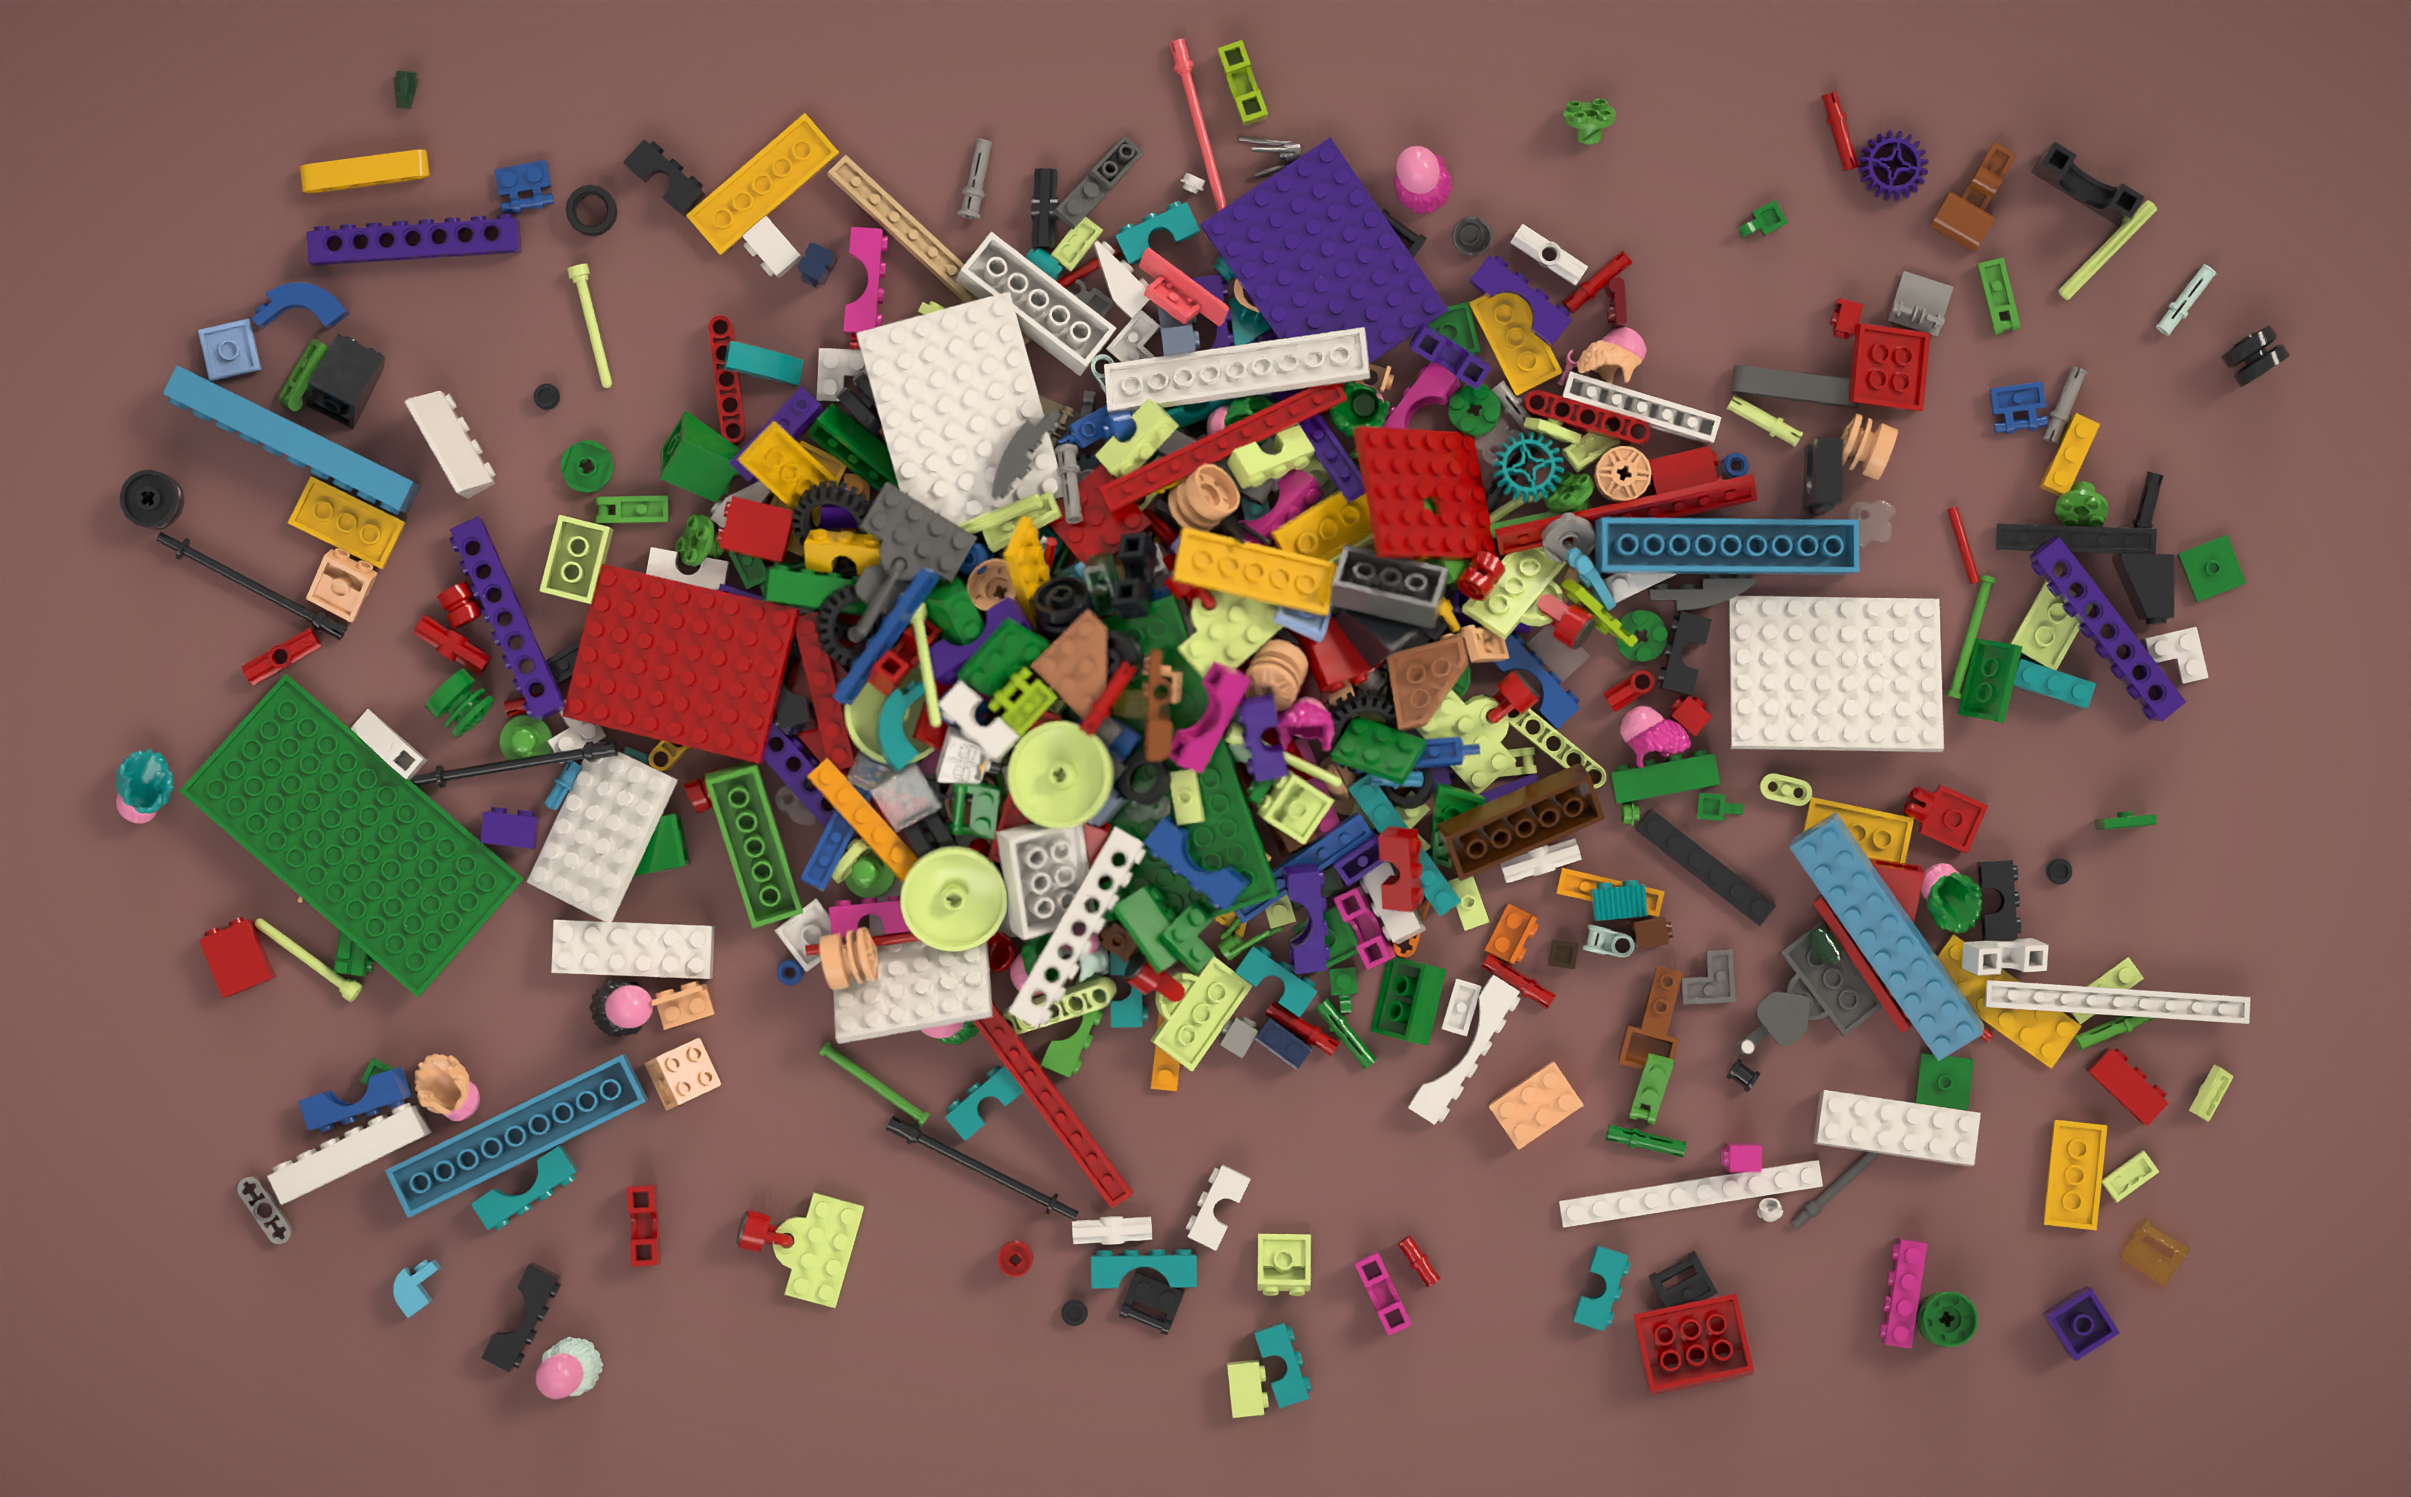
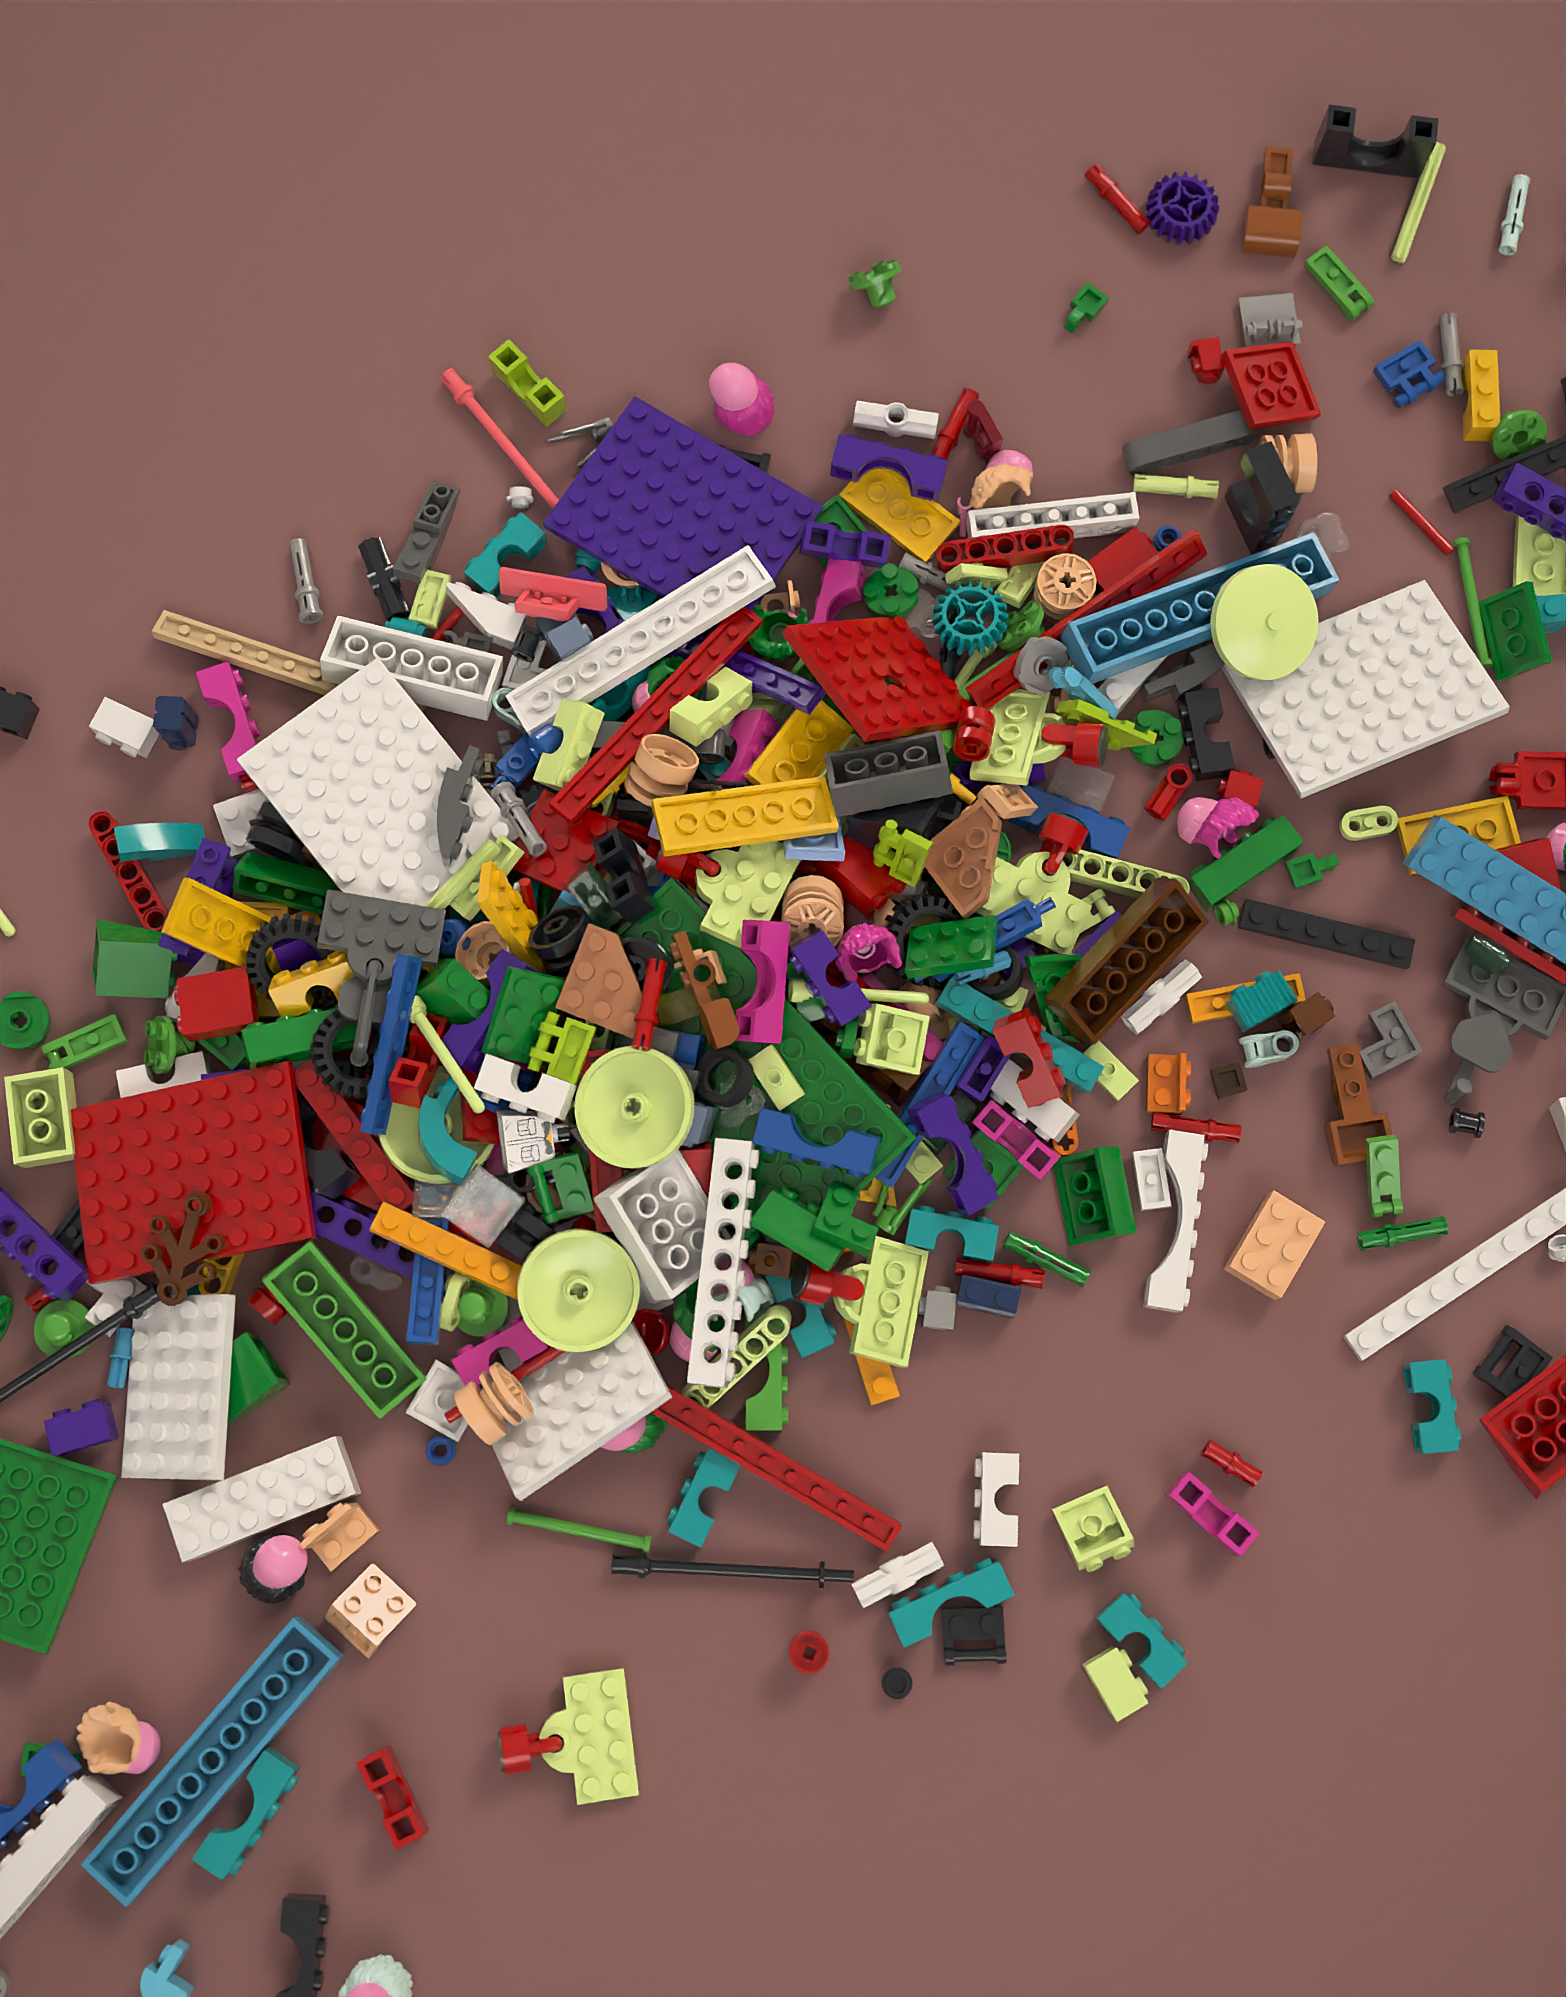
camera: 25 degrees left, 10 degrees down
(648, 728) = (181, 1253): none -> reddish brown plant
(763, 184) = (92, 672): yellow plate -> none
(1142, 324) = (527, 643): none -> black bush
(1343, 983) = (1021, 1209): green plate -> none
(1371, 661) = (909, 856): none -> lime plate
(1472, 236) = (814, 431): dark grey hair -> none
(1742, 1157) = (1510, 1204): dark pink brick -> none
(1773, 584) = (1264, 622): none -> yellowish green dish

